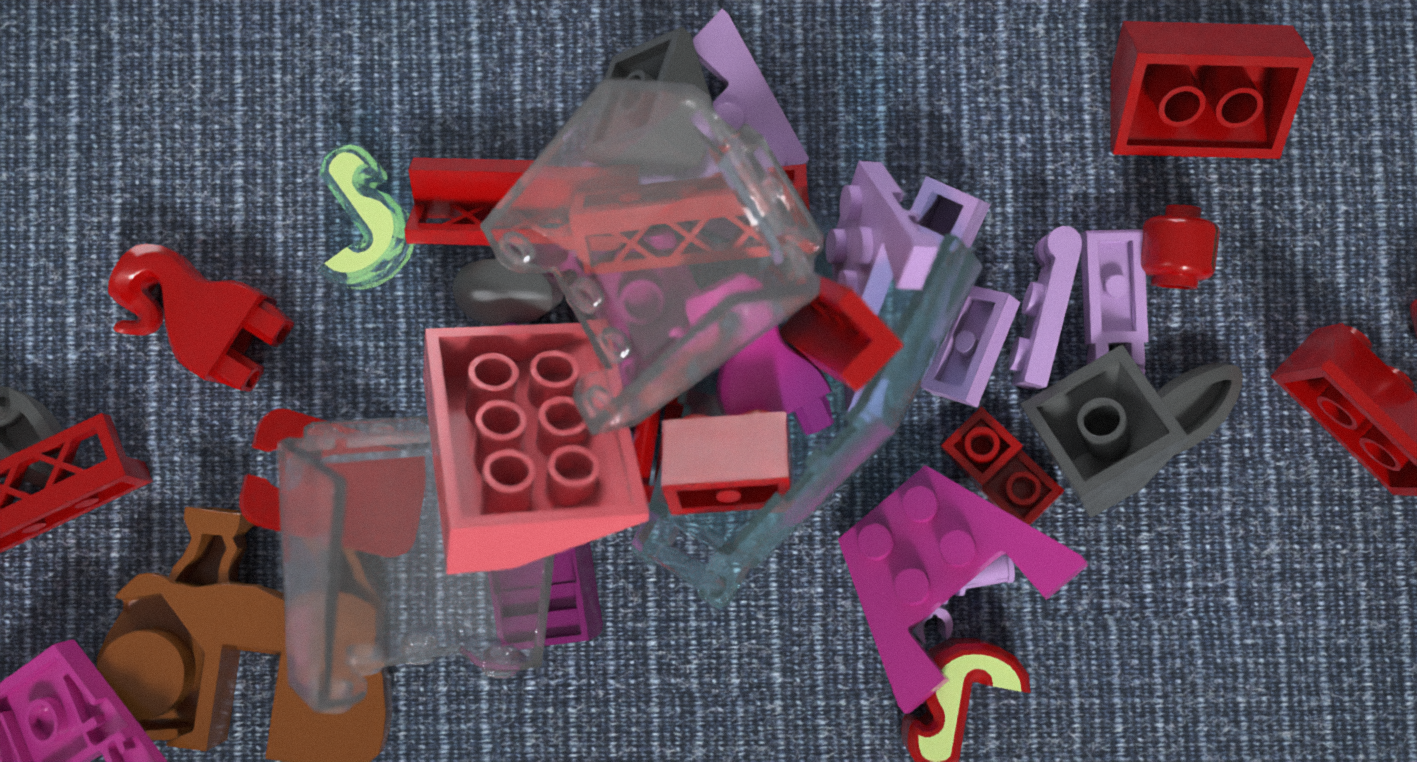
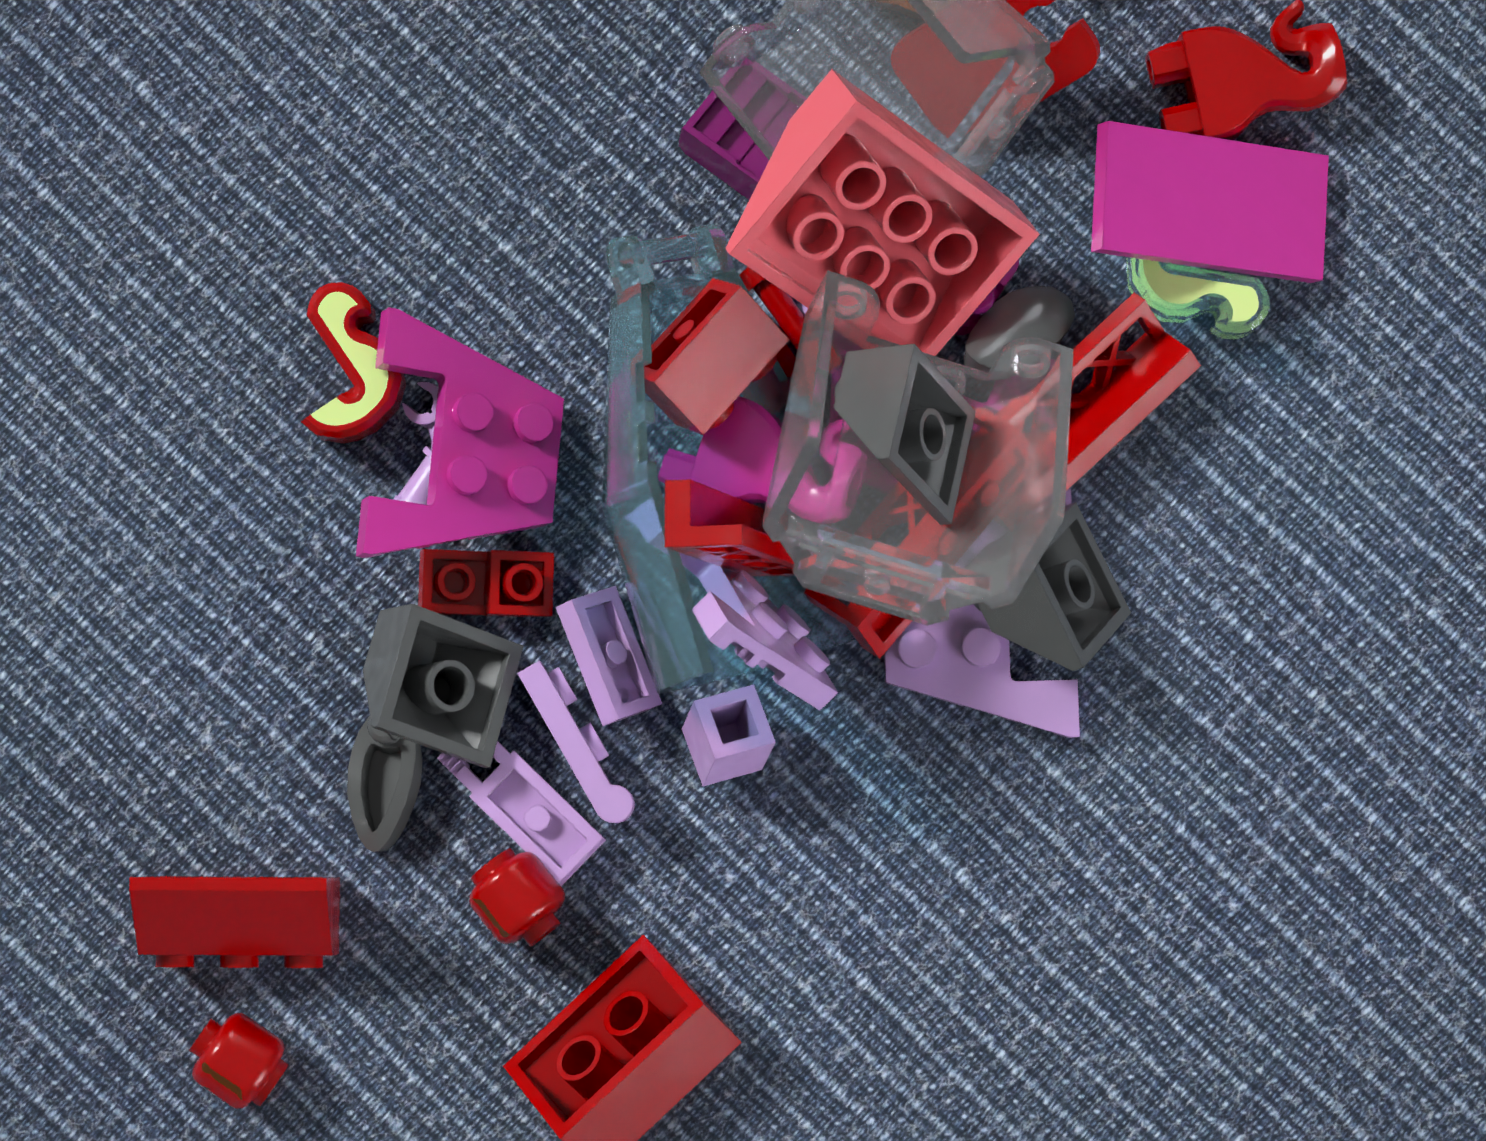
camera: 135 degrees right, 0 degrees up
(301, 253) = (1209, 202): none -> dark pink tile
(640, 285) = (908, 421): none -> dark grey slope

